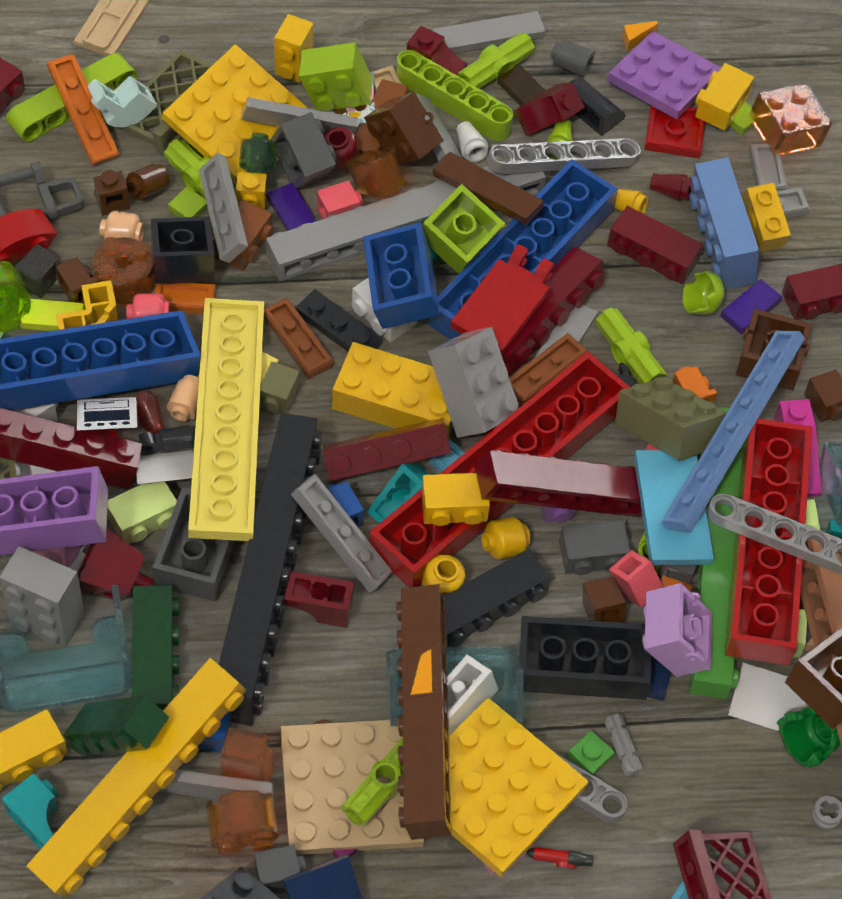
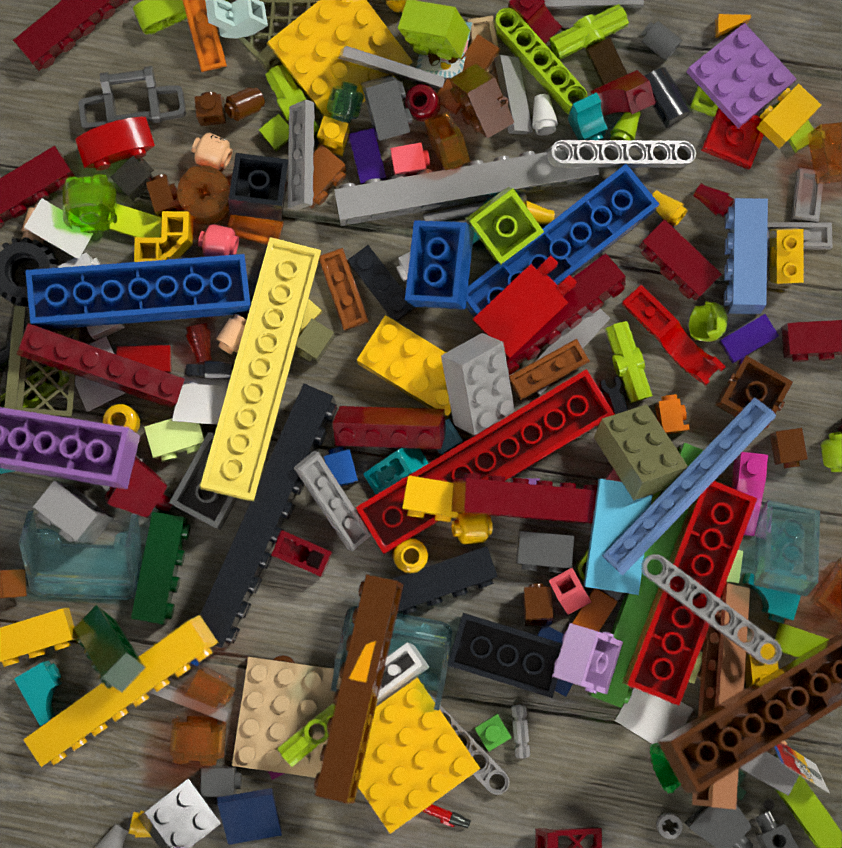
camera: 15 degrees right, 25 degrees up
(106, 413) = (158, 348): white sticker -> none
(489, 188) = (542, 181): reddish brown tile -> none
(517, 125) = (587, 119): none -> teal arch
(634, 106) = (703, 103): none -> lime tile
(669, 318) = (671, 335): none -> red piece

